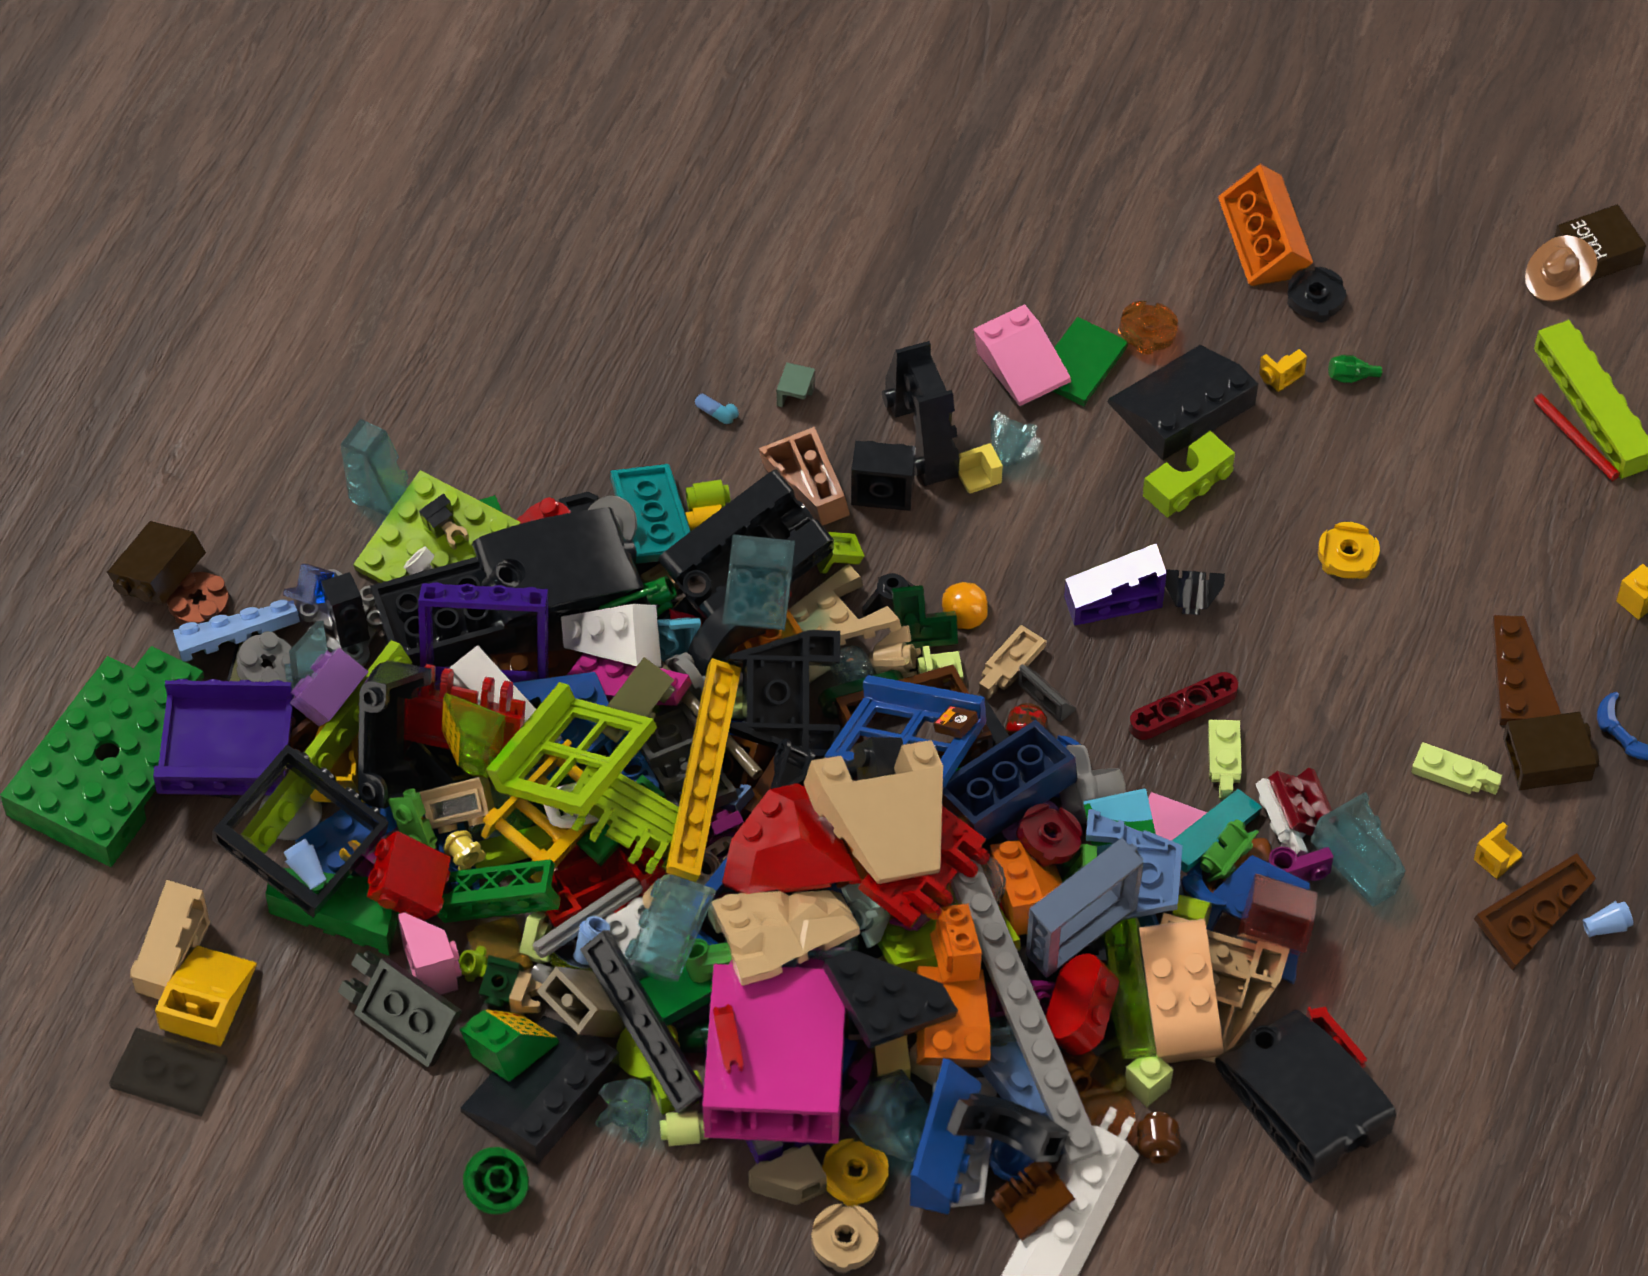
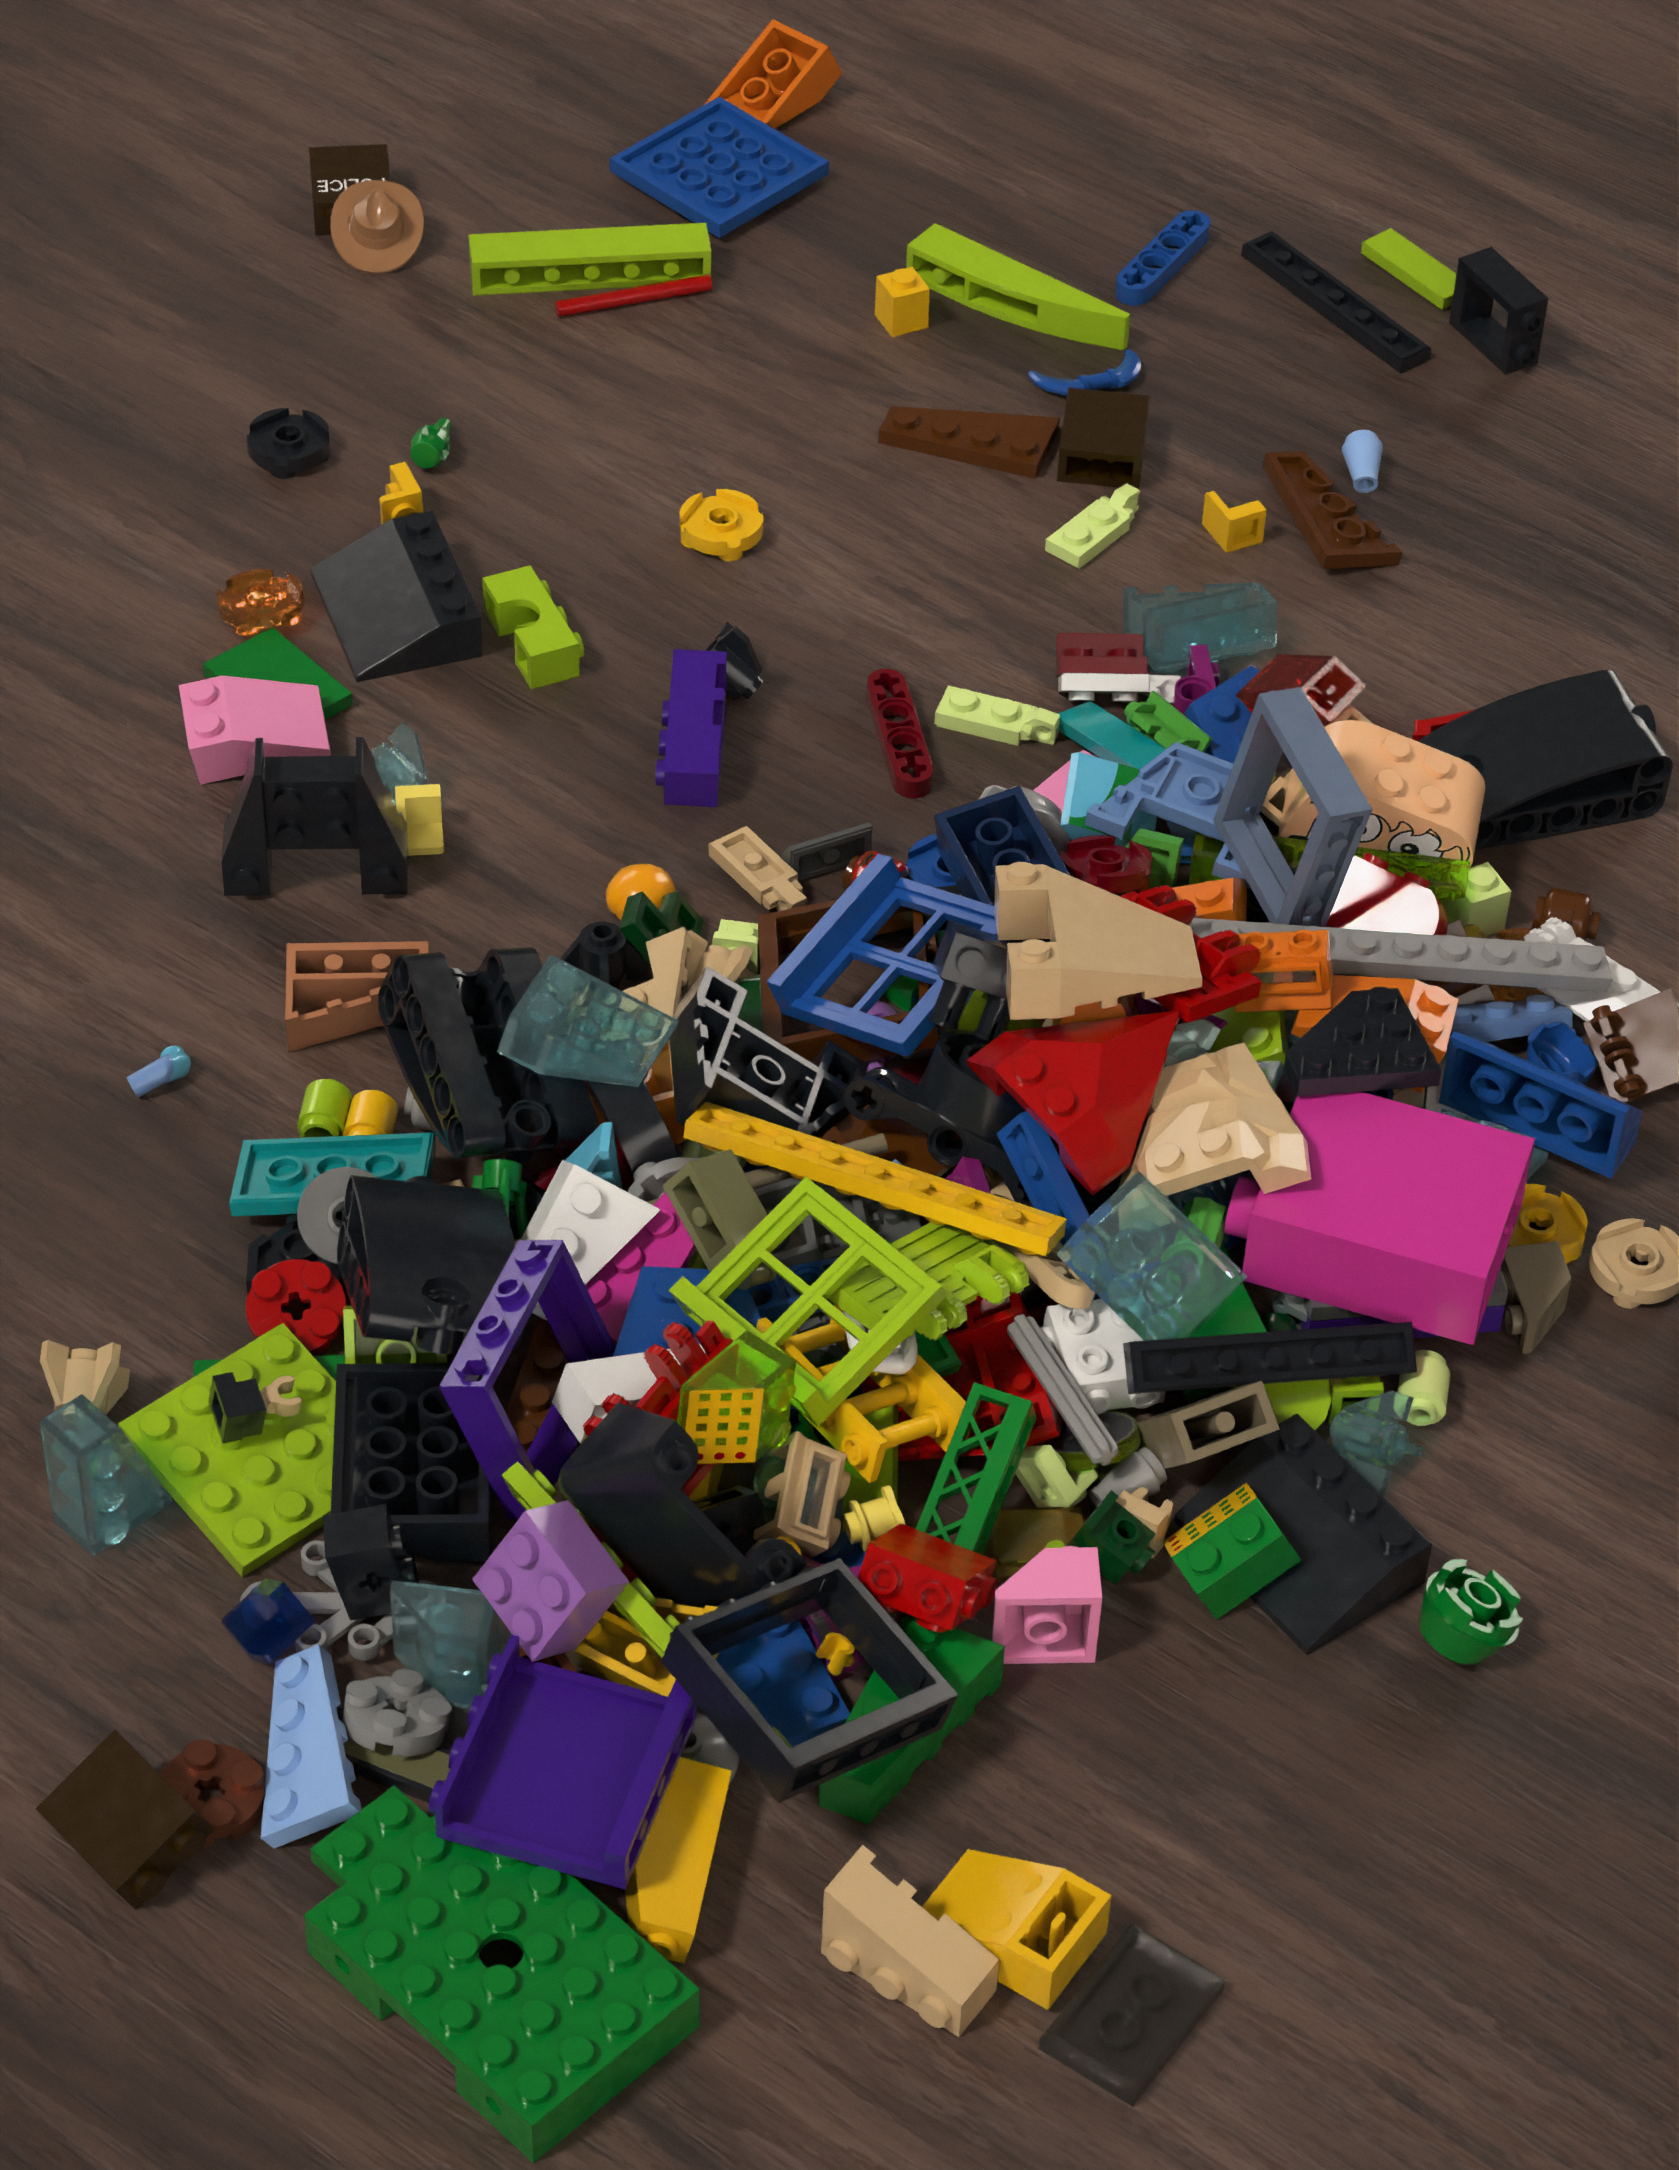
camera: 75 degrees left, 10 degrees down
(189, 819) = (676, 1859): none -> yellow slope
(305, 863) = (887, 1669): light blue cone -> none
(401, 1007) = (1126, 1665): pearl dark grey tile -> none
(408, 815) = (827, 1537): bright green hinge -> none
(419, 561) = (306, 1456): white tile -> none
(453, 448) = (84, 1372): none -> tan brick
(588, 930) = (1104, 1386): light blue cone -> none
(728, 1038) = (1394, 1210): red piece -> none
(795, 382) = (166, 969): sand green panel -> none
(883, 475) = (398, 895): black brick -> none
(955, 721) = (902, 896): reddish brown tile -> none
(1008, 1123) = (1557, 1008): black arch -> none
(1265, 227) = (154, 453): orange slope -> none

